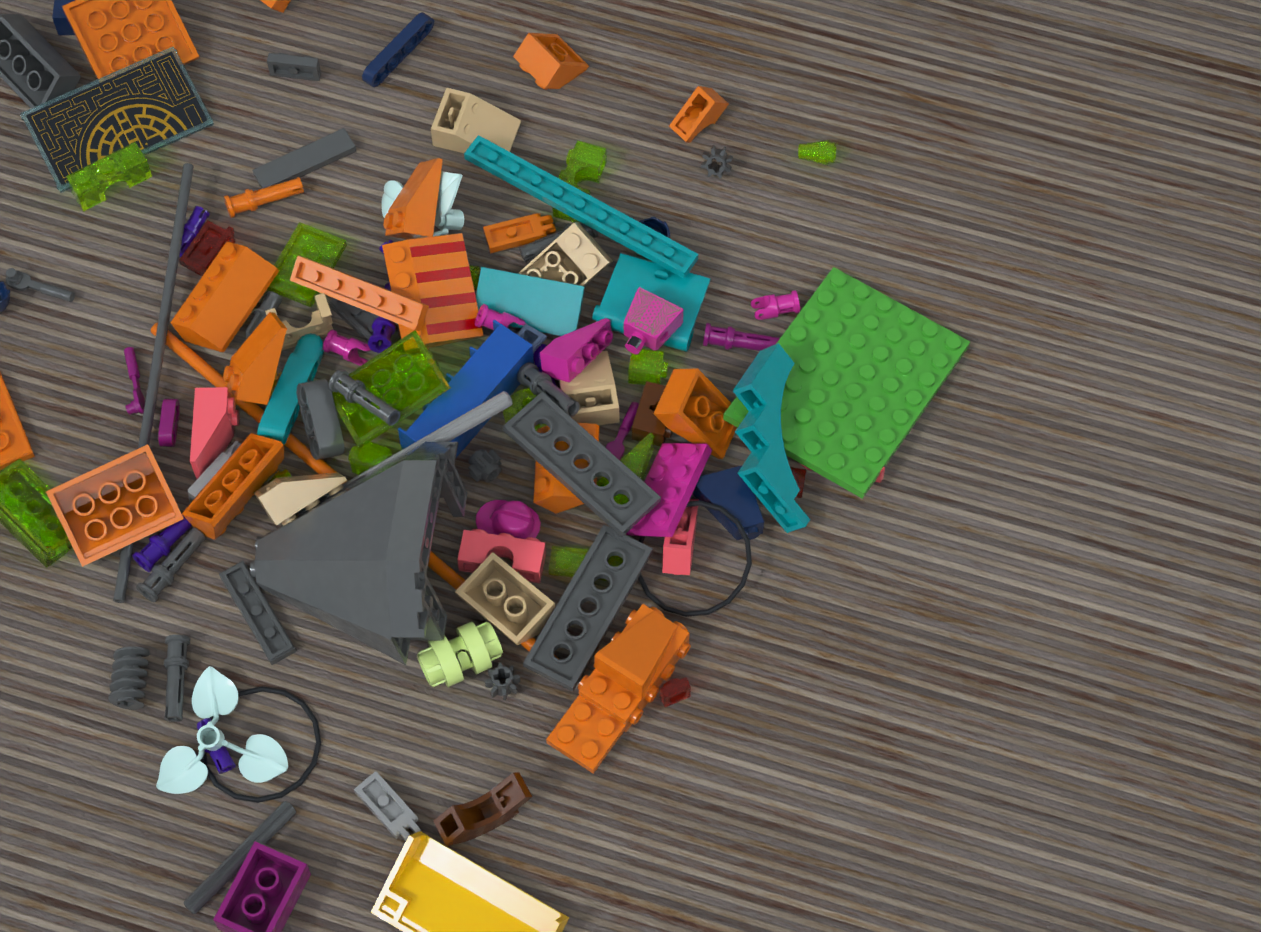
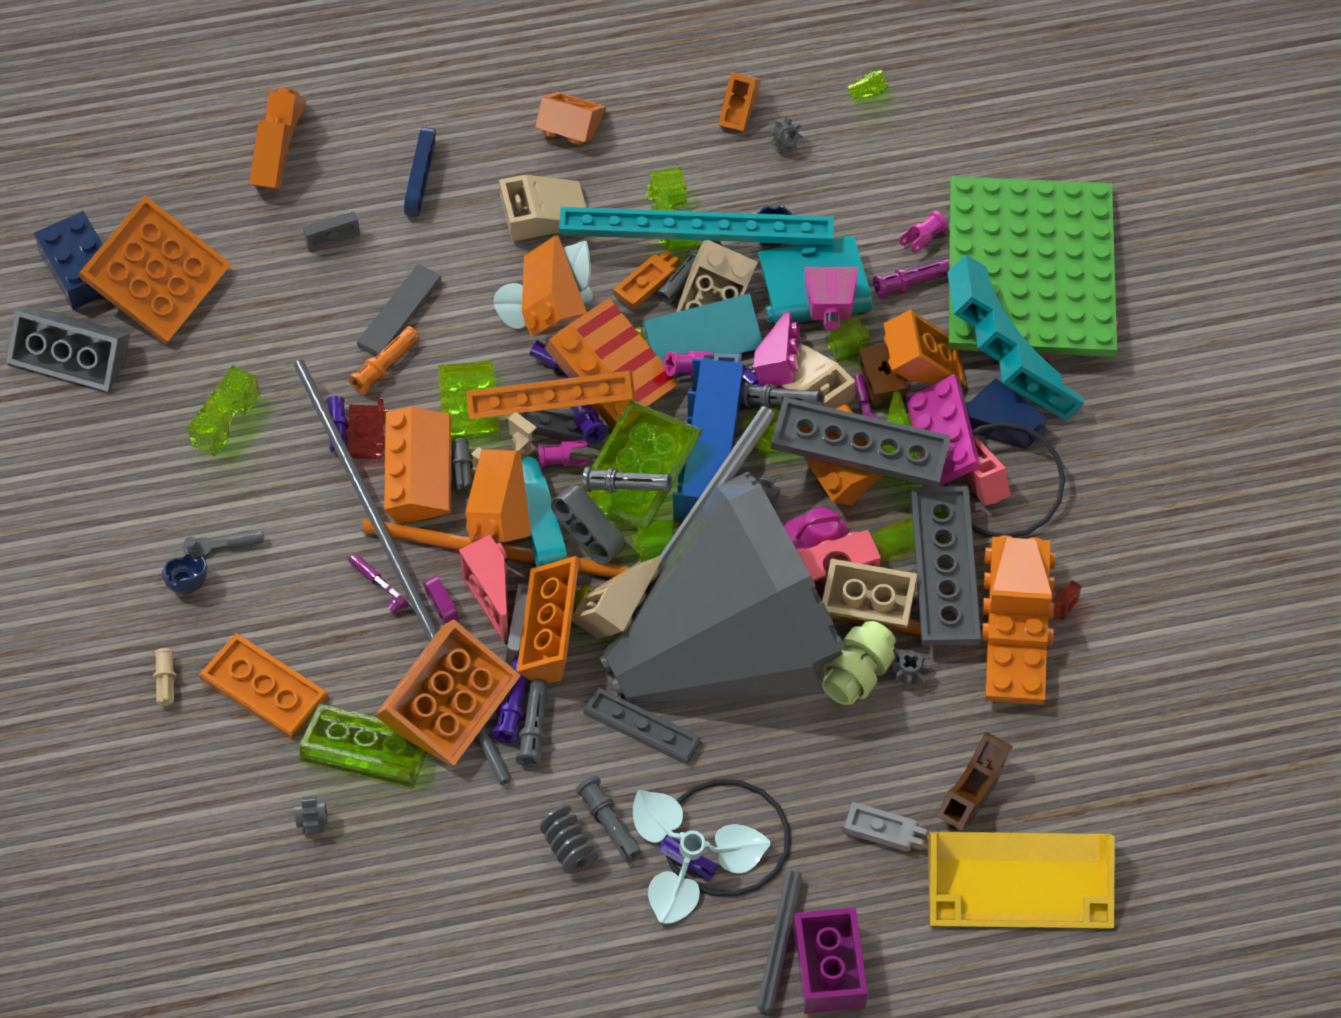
camera: 30 degrees left, 5 degrees down
(140, 104) = (189, 354): black piece -> none

